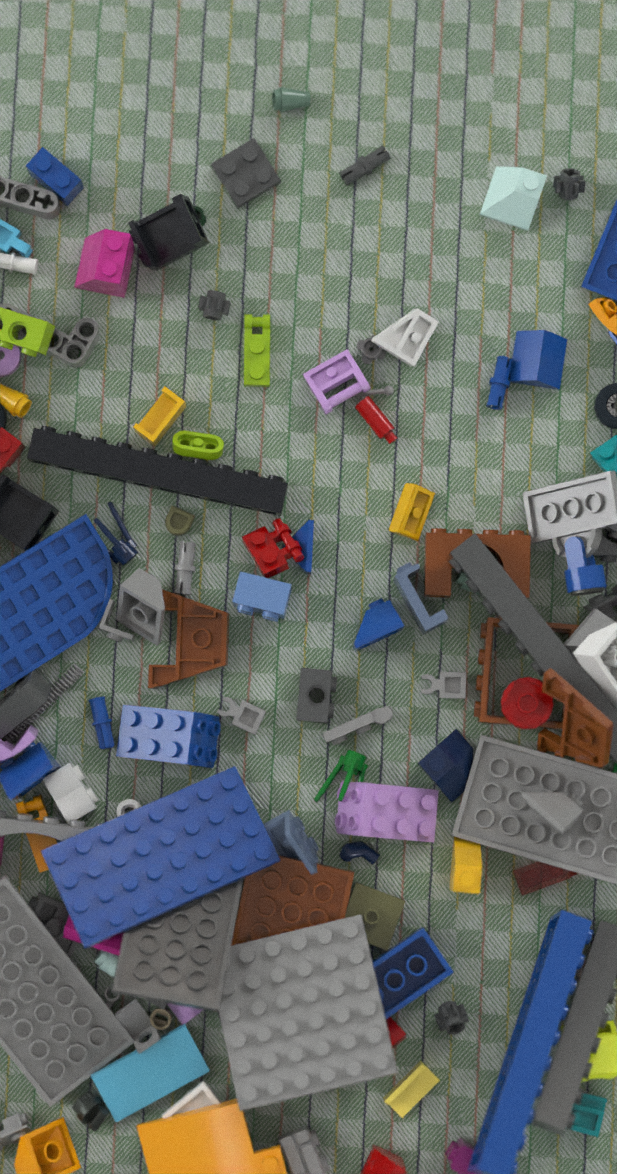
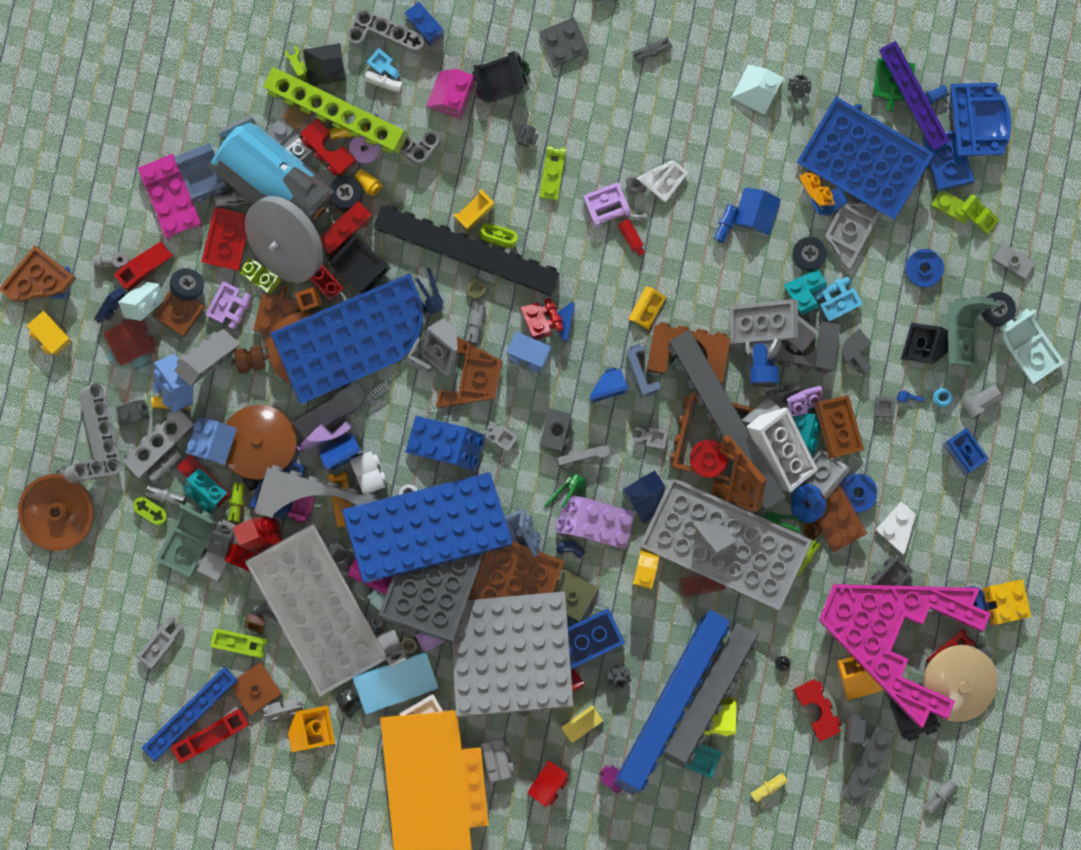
camera: 10 degrees right, 0 degrees up
(101, 723) = (398, 426): blue axle -> none

